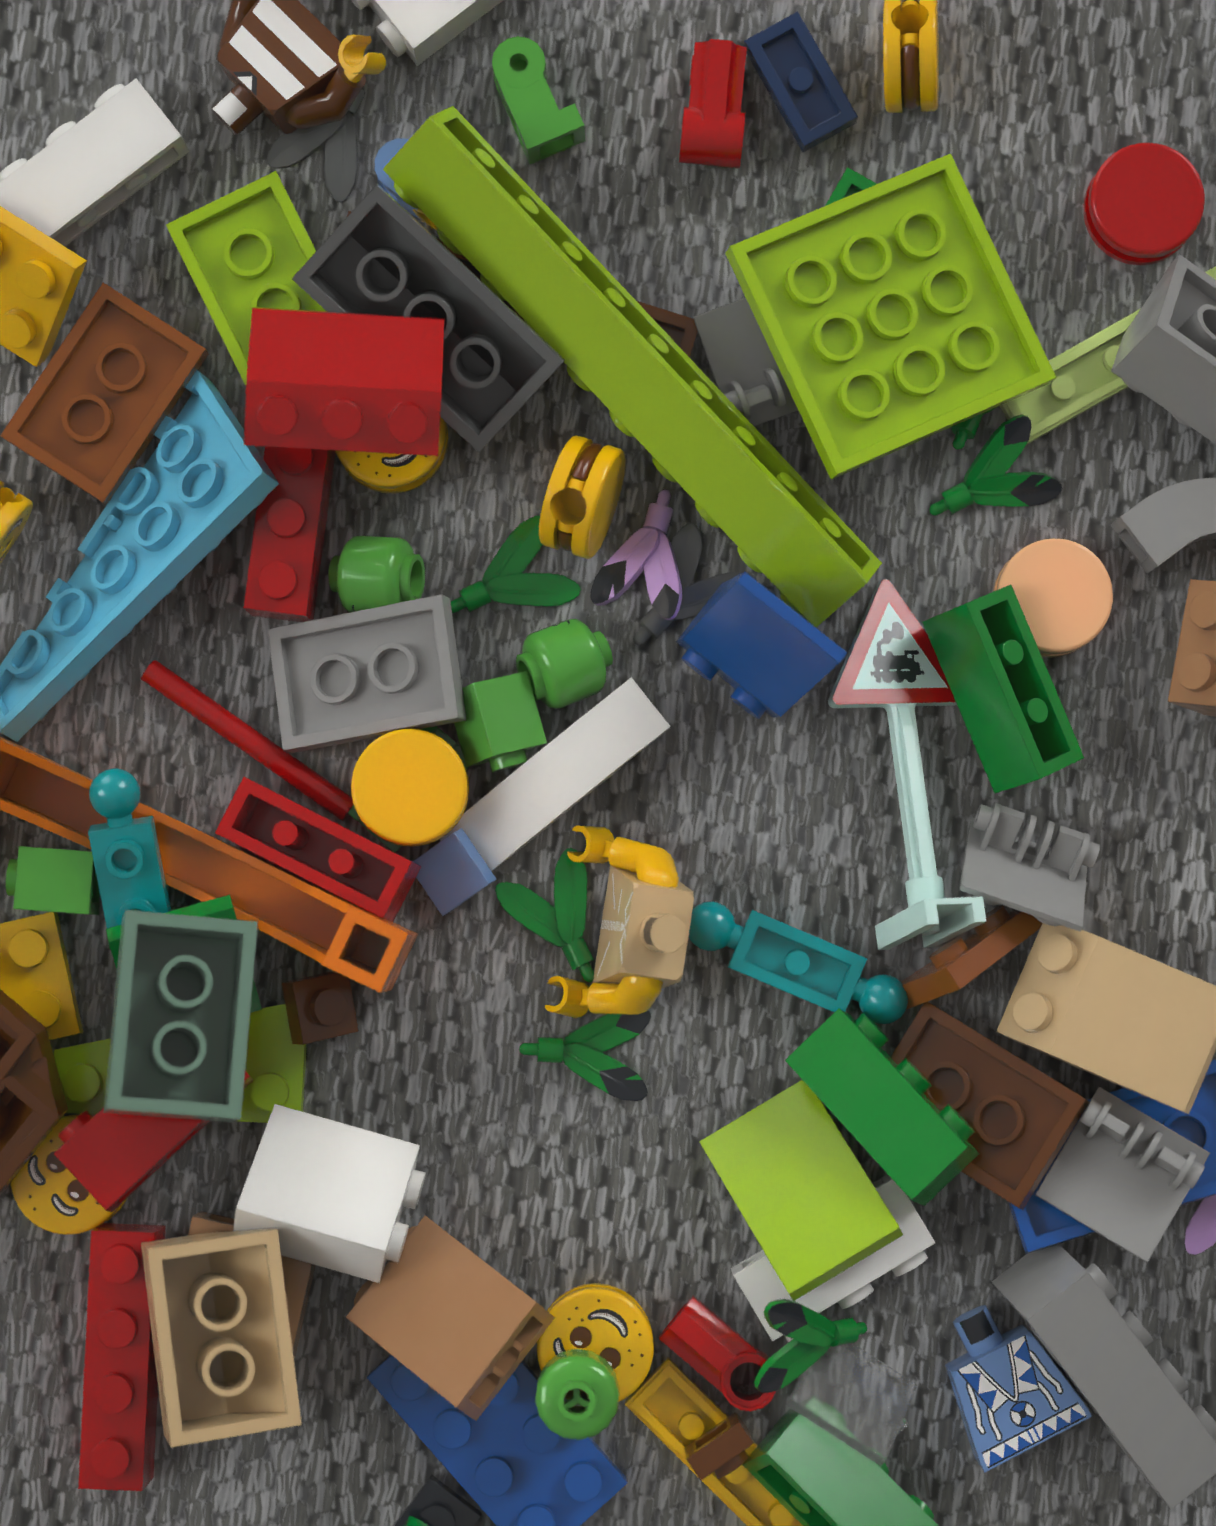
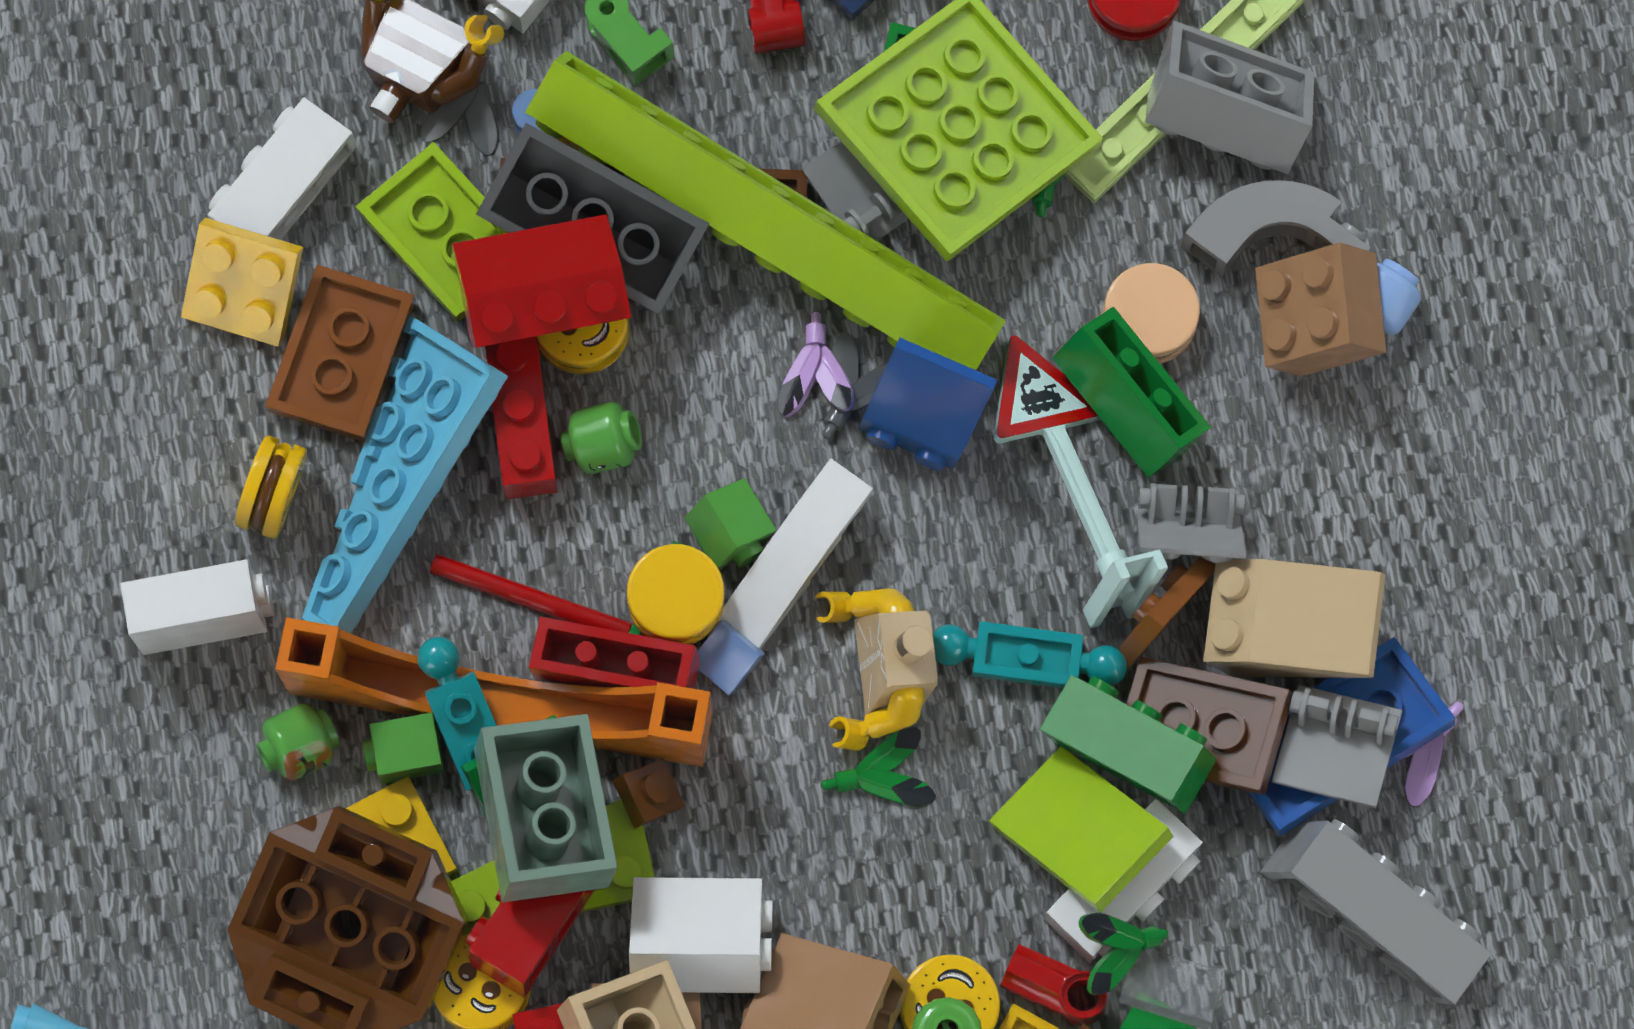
camera: 15 degrees left, 10 degrees down
(366, 674) = (614, 515): light grey plate -> none
(507, 584) = (707, 418): green piece -> none
(559, 924) = (825, 679): green piece -> none
(565, 662) = (773, 465): bright green head -> none
(582, 497) = (751, 330): yellow head -> none
(987, 478) = (1071, 235): green piece -> none
(1008, 1390) = (1296, 949): torso -> none

